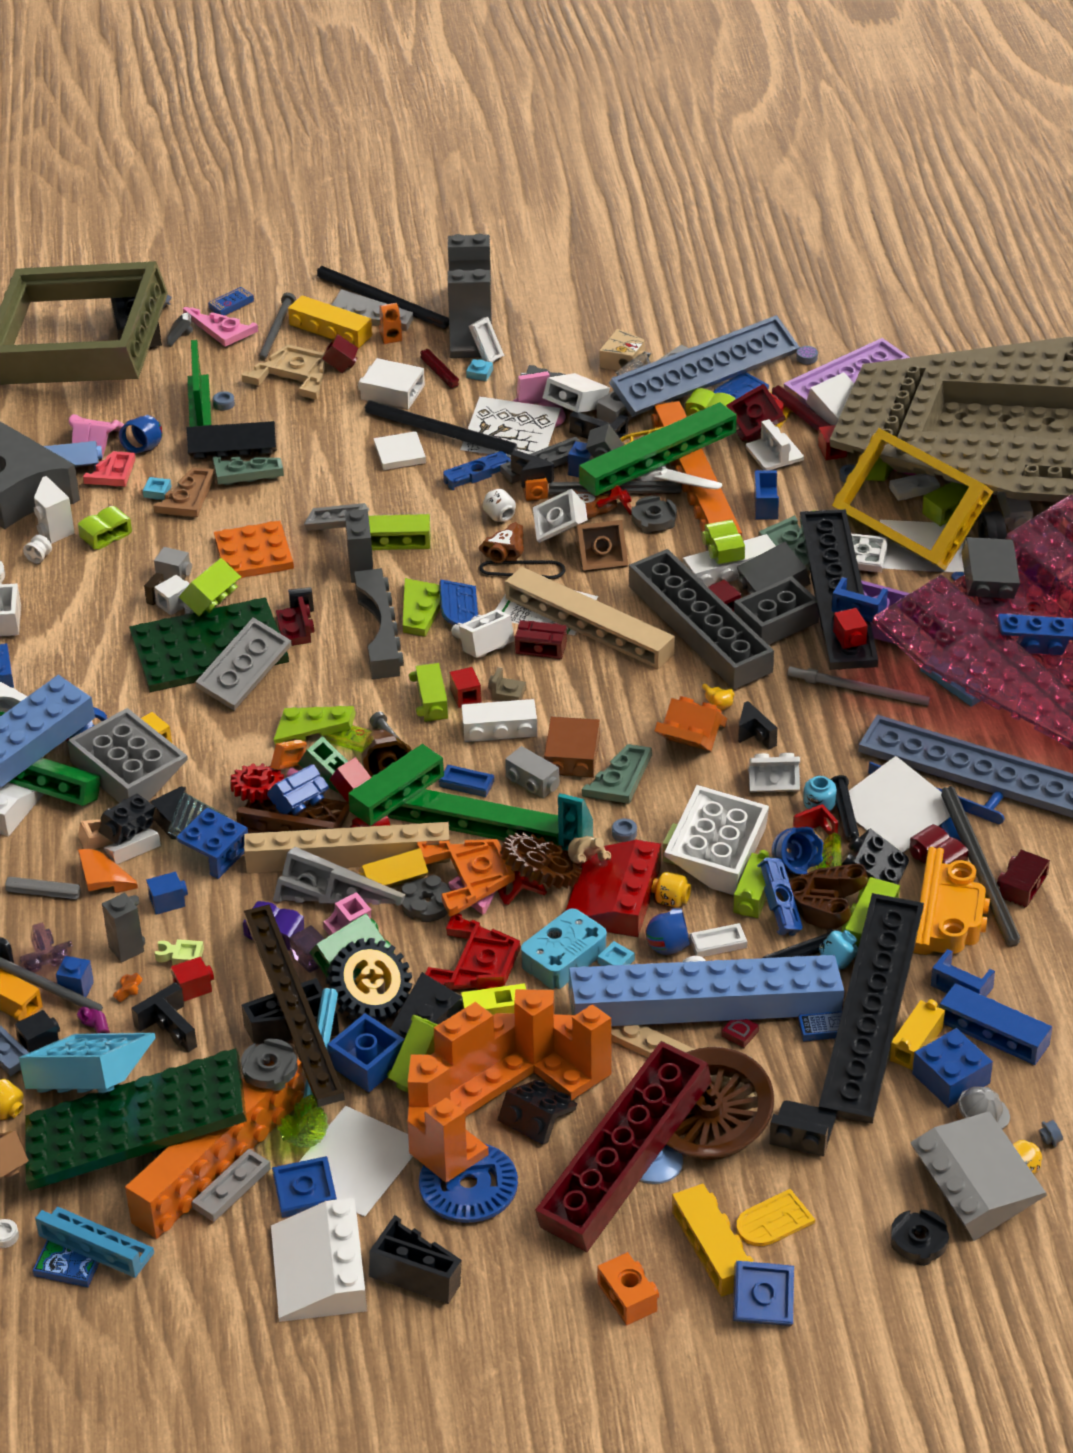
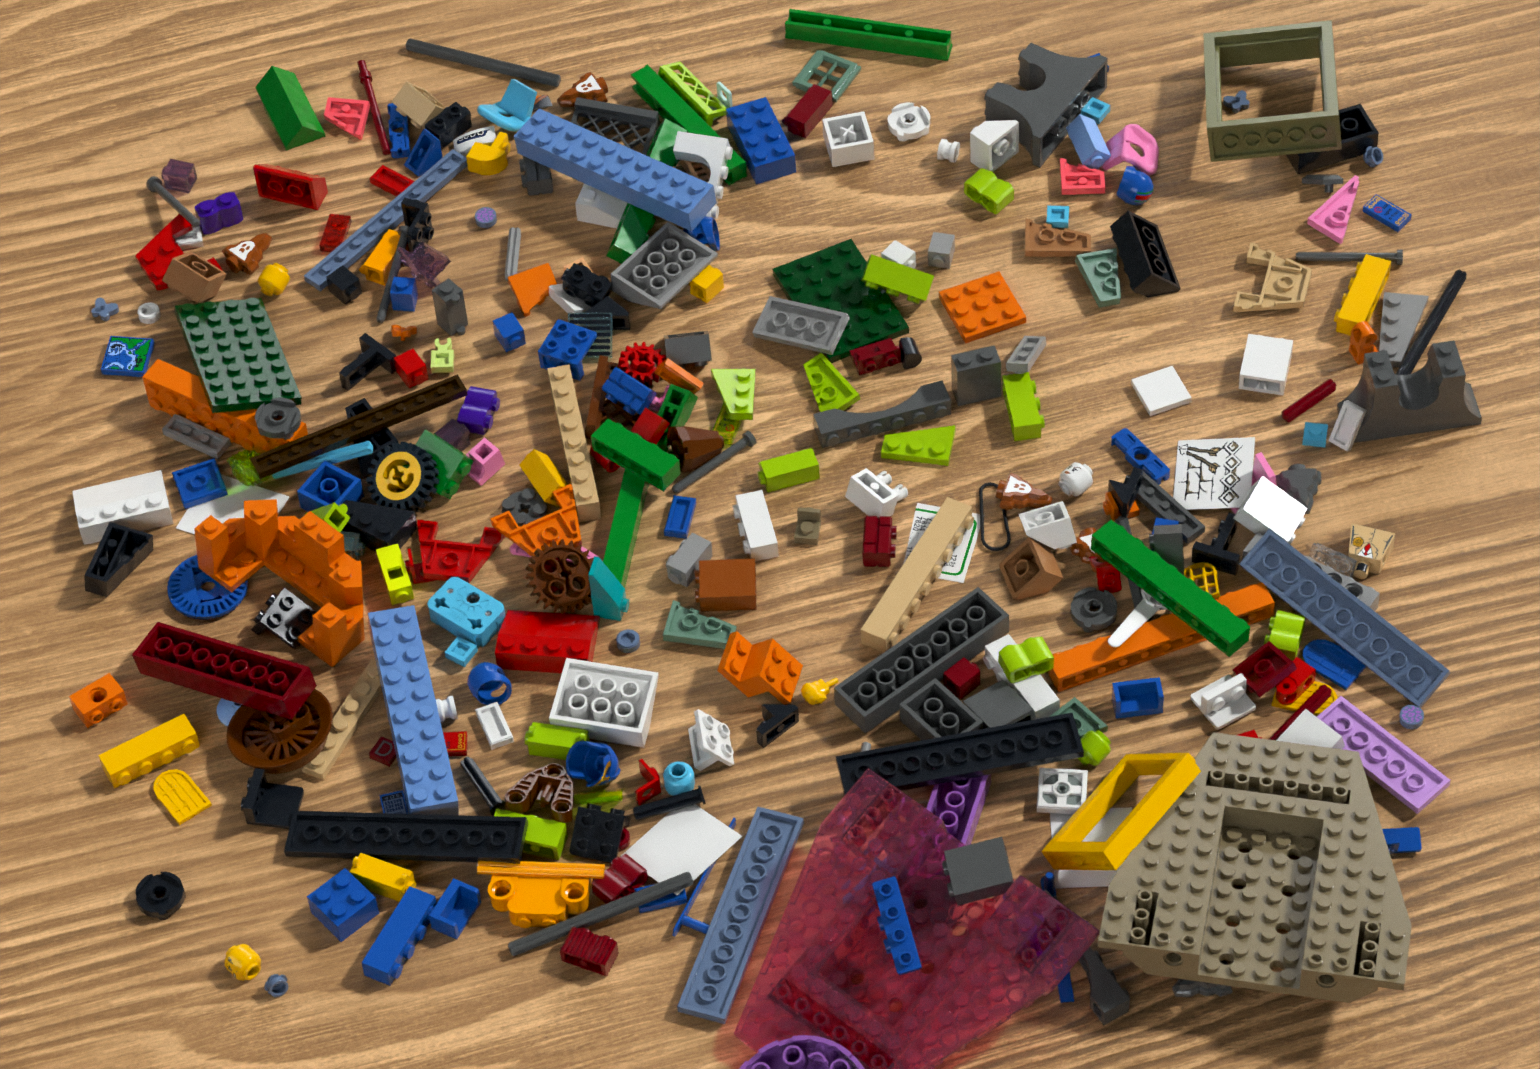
camera: 85 degrees right, 10 degrees up
(84, 1062) = (302, 314): medium azure slope -> none
(93, 1241) = (123, 362): dark azure fence -> none
(94, 1019) = (366, 320): magenta arm -> none
(155, 580) = (906, 240): dark brown tile -> none
(198, 392) = (1209, 219): green fence -> none
(223, 401) = (1214, 240): sand blue tile -> none
(238, 747) = (688, 348): none -> dark grey slope
(316, 879) = (525, 427): light grey wedge -> none
(328, 657) = (828, 385): none -> lime wing
(340, 354) = (1301, 313): dark red brick -> none
(440, 427) = (1200, 416): black axle -> none
(457, 601) = (924, 471): blue window -> none
(465, 686) = (800, 493): red brick -> none
(584, 848) = (577, 604): tan piece -> none
(671, 889) = (546, 681): yellow head -> none
(763, 1293) = (90, 787): blue tile -> none
(777, 881) = (550, 750): blue piece -> none
(840, 945) = (475, 802): medium azure head -> none
(850, 628) = (875, 758): red brick -> none
(866, 605) = (921, 767): blue panel -> none
(978, 1172) = (216, 922): light grey slope -> none
(981, 1100) = (300, 933): light grey piece -> none
(992, 525) = (1094, 897): black tyre -> none

